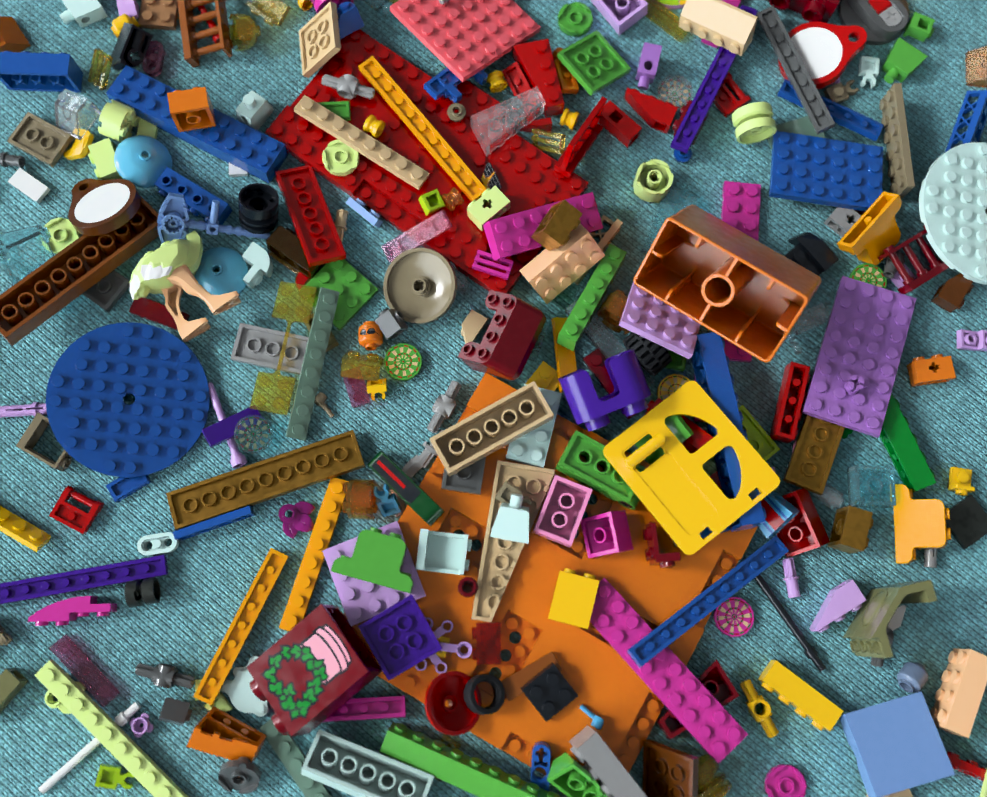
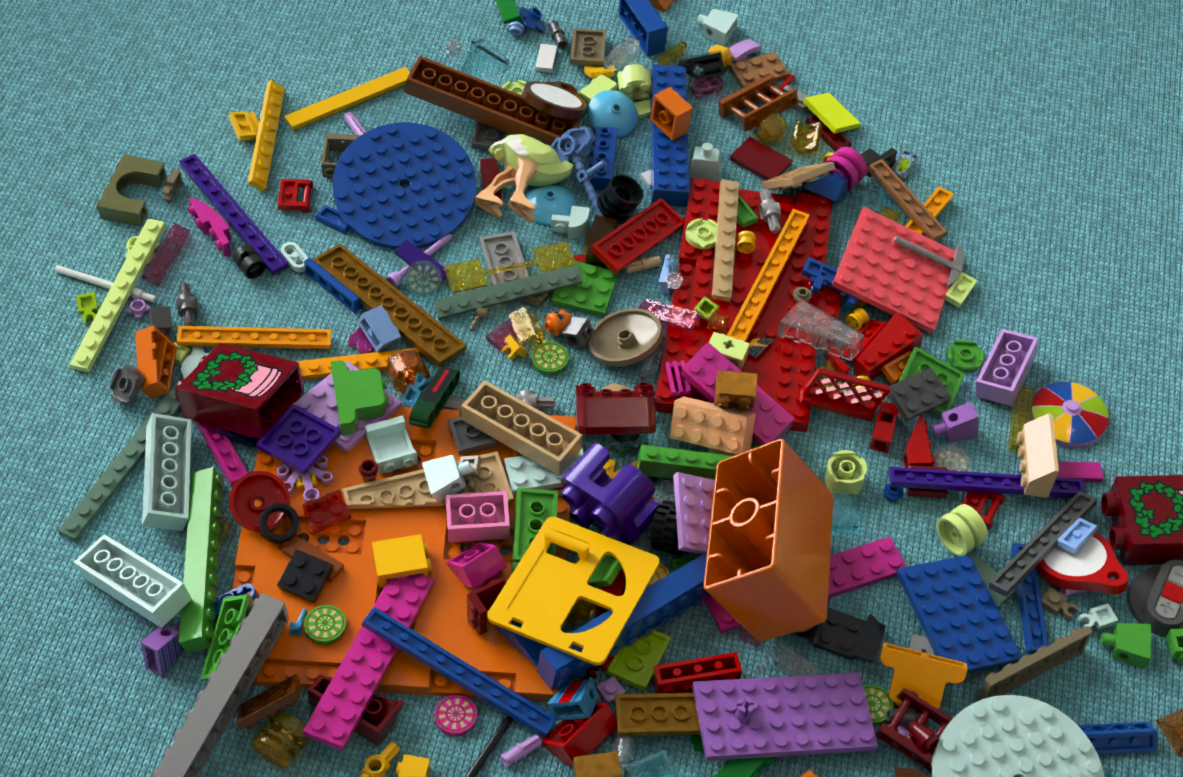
camera: 65 degrees right, 25 degrees down
(270, 61) = (760, 159): none -> dark red tile
(297, 503) = (379, 328): none -> light blue brick
(364, 202) = (672, 263): none -> clear light blue plate
(378, 211) = (674, 280): none -> clear plate
(605, 694) = (325, 624): none -> bright green tile
(607, 78) = (918, 394): none -> dark grey plate
(802, 40) = (1076, 535): none -> light blue plate
(931, 260) = (923, 735): none -> dark red cone

